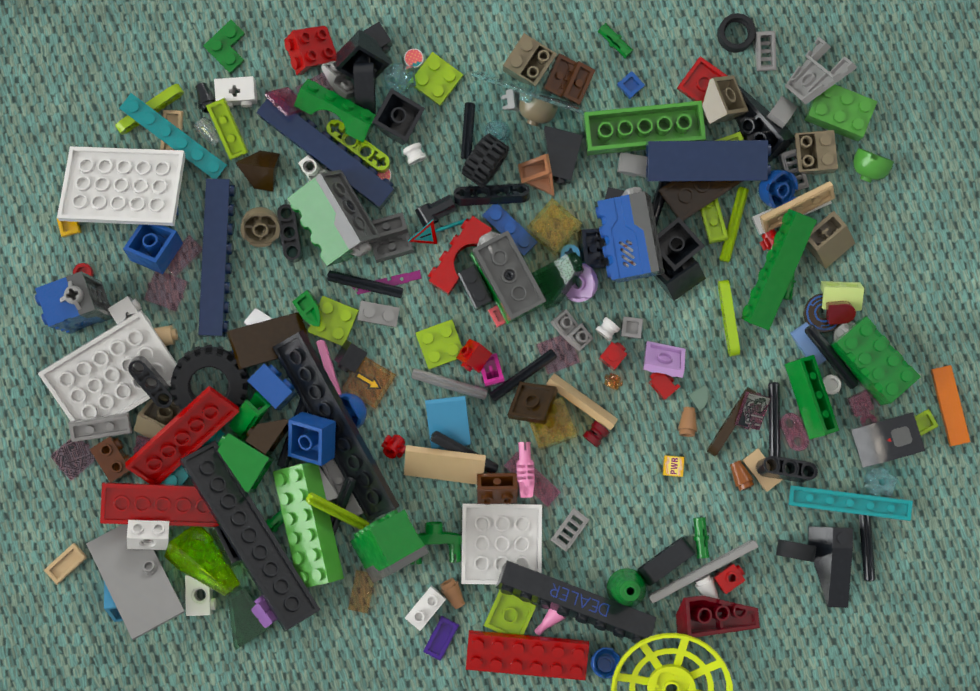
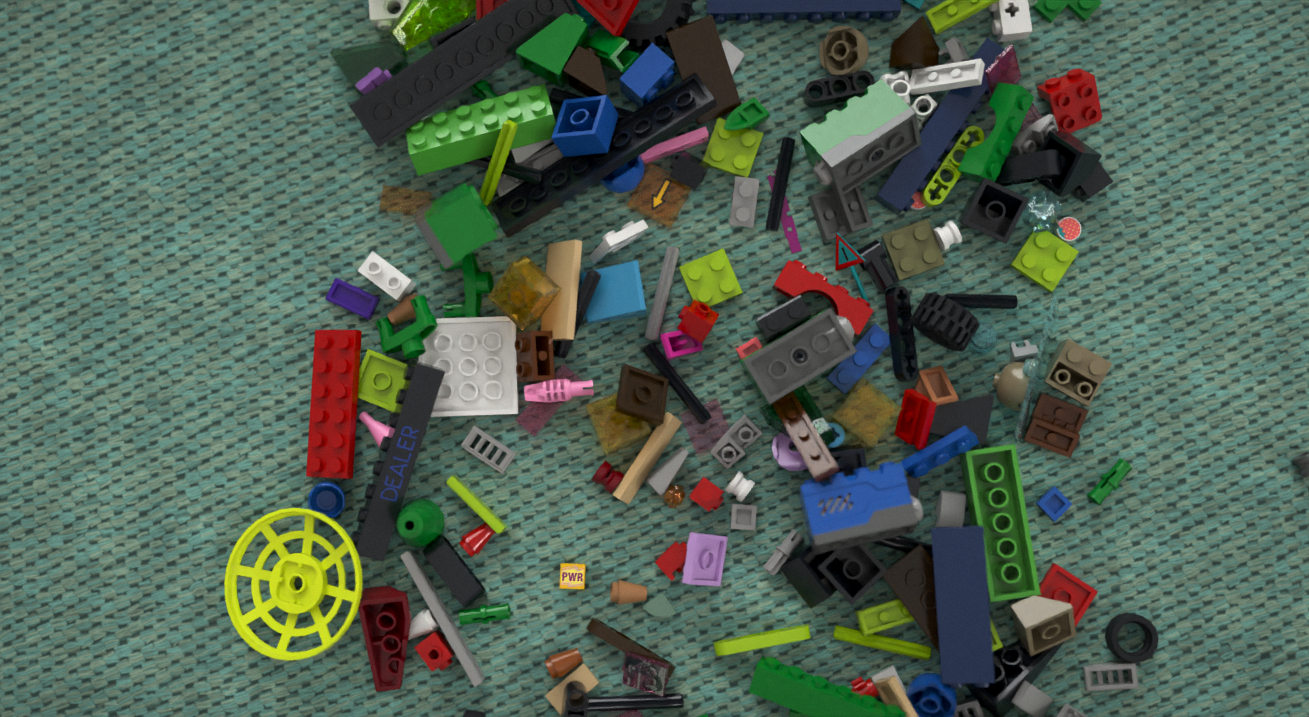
camera: 90 degrees right, 0 degrees up
(265, 136) = (956, 51): none -> light grey tile
(287, 146) = (946, 76): none -> white plate
(290, 185) = (899, 84): none -> white plate
(393, 446) = (582, 228): red gear -> none
(405, 420) = (614, 241): none -> white wing
(424, 181) = (913, 250): none -> olive plate
(445, 494) = (524, 292): none -> clear yellow brick
(478, 589) = (411, 338): none -> green connector
(560, 188) = (915, 418): none -> red plate
(573, 274) = (805, 436): none -> tile
(587, 170) = (940, 452): none -> blue plate
(595, 388) = (666, 471): none -> light grey slope
(613, 540) = (476, 504): none -> lime tile
(642, 543) = (476, 539): none -> red cone
(661, 297) = (783, 552): none -> light grey axle

